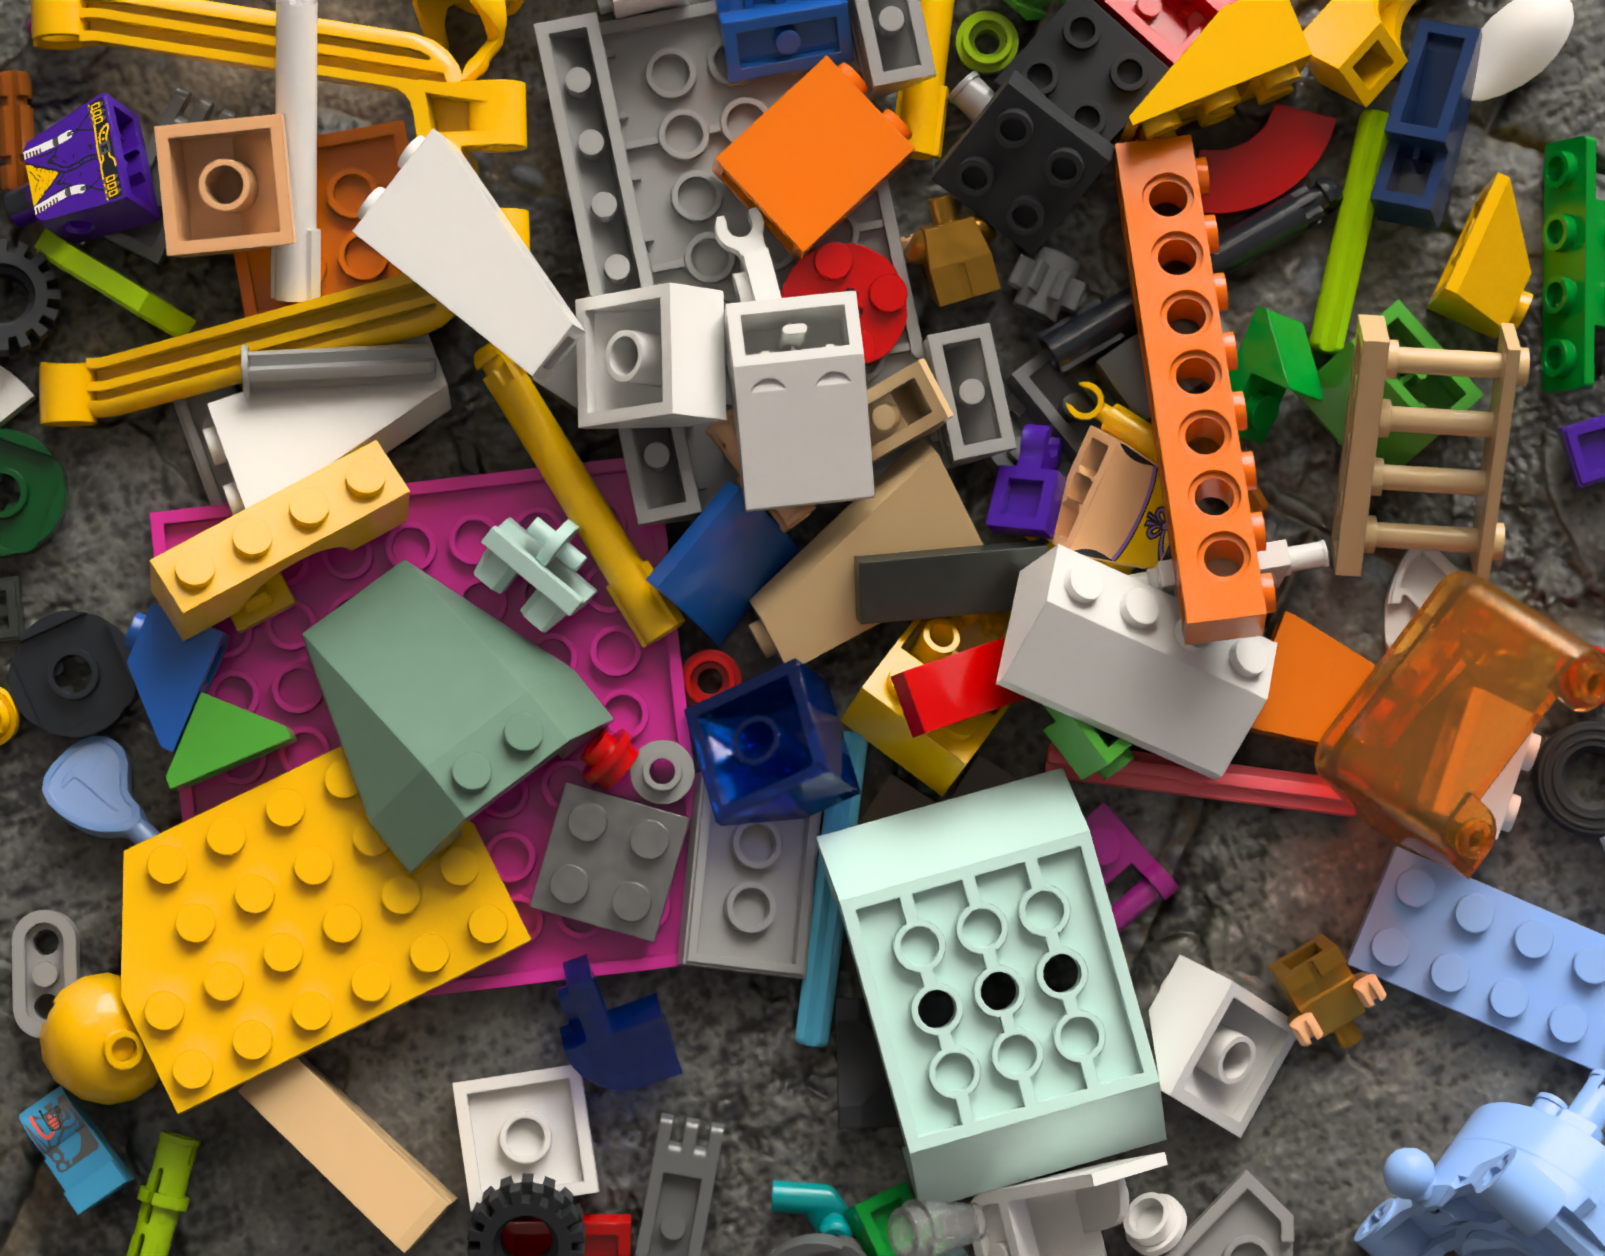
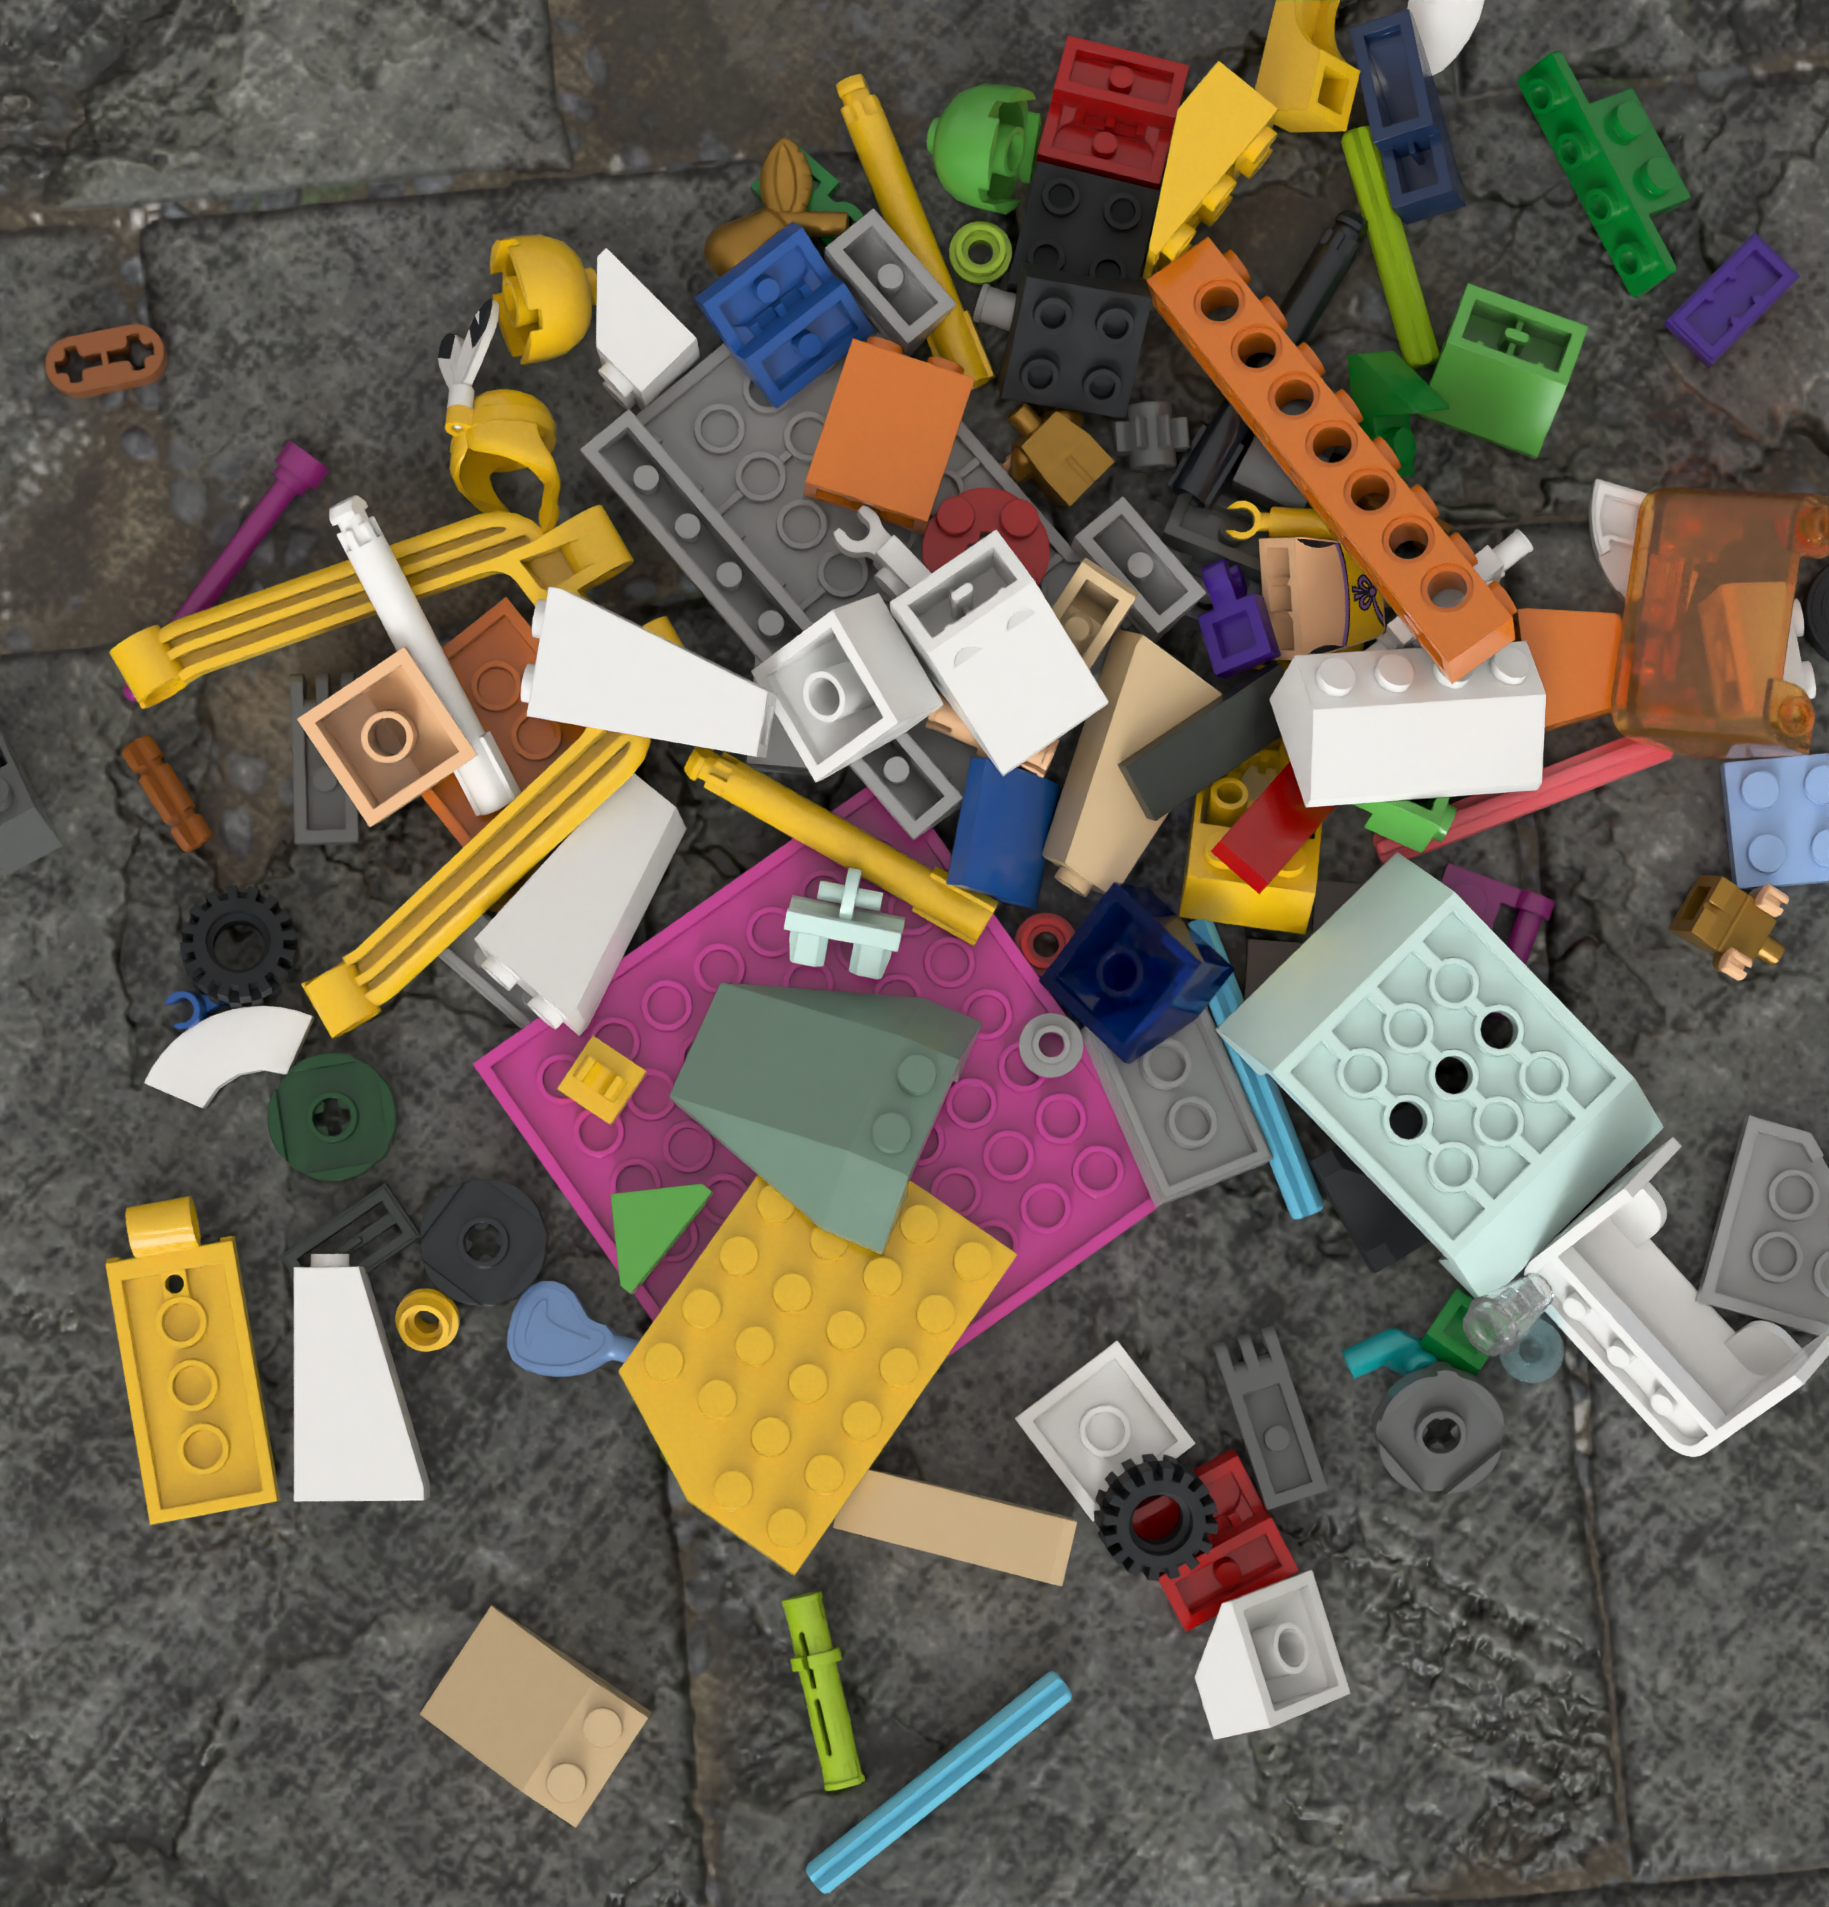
camera: 25 degrees left, 0 degrees up
(38, 973) = (600, 1521): light grey plate -> none
(75, 1149) = (714, 1658): dark azure leg -> none
(87, 175) = (254, 796): dark purple torso -> none
(94, 1043) = (684, 1554): yellow cylinder -> none
(114, 284) = (330, 880): lime tile -> none
(171, 671) = (571, 1187): blue slope -> none
(229, 562) = (576, 1063): yellow arch -> none
(337, 366) = (572, 843): light grey axle -> none
(608, 758) = (997, 1058): red plate -> none
(610, 862) = (1048, 1149): flat silver plate -> none
(614, 1046) = (1141, 1307): clear blue brick -> none
(1154, 1223) = (1694, 1206): white plate -> none
(1216, 1044) = (1662, 1019): white slope -> none
(1266, 164) = (1285, 224): red tile -> none
(1374, 418) = (1503, 397): tan fence -> none
(1487, 266) = (1525, 212): yellow slope -> none

